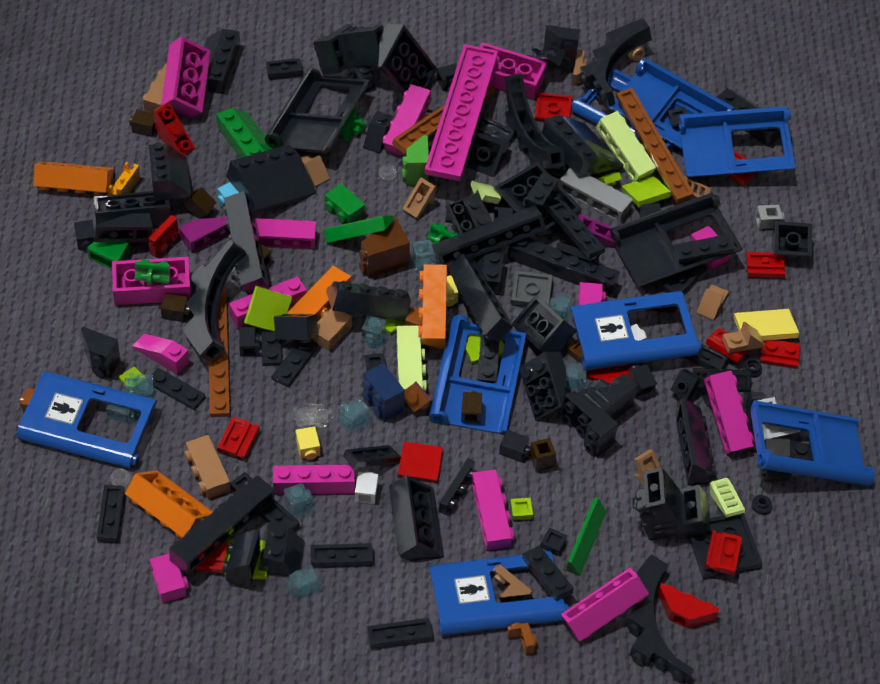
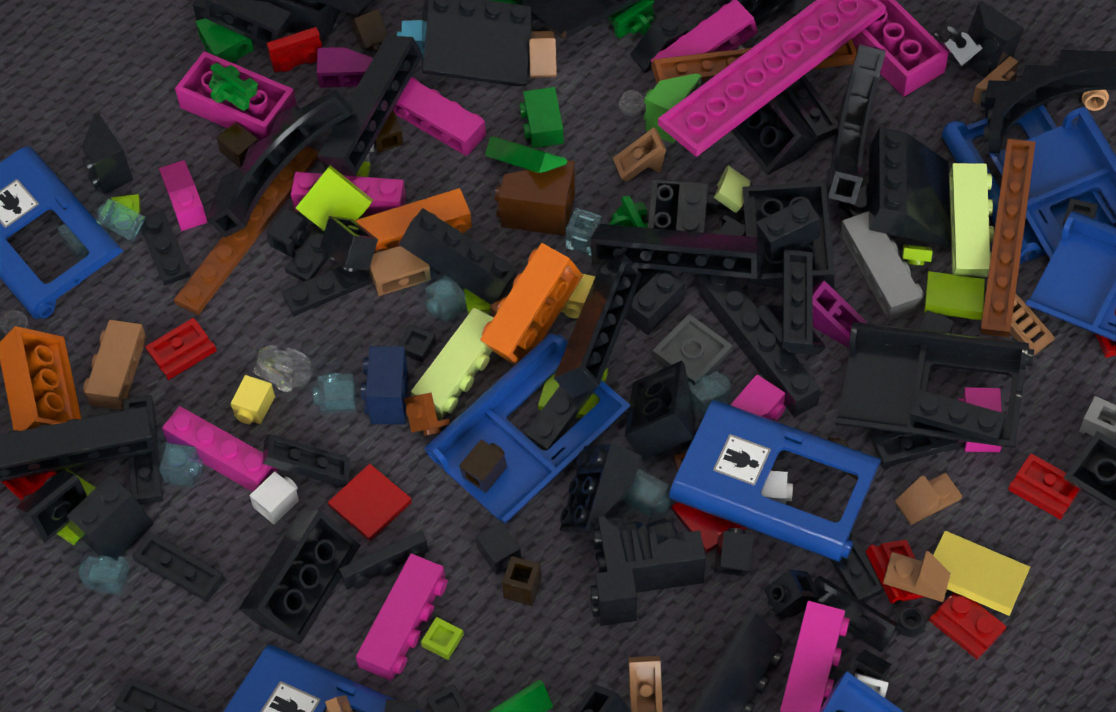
camera: 40 degrees right, 5 degrees up
(552, 105) = (920, 118): red tile -> none

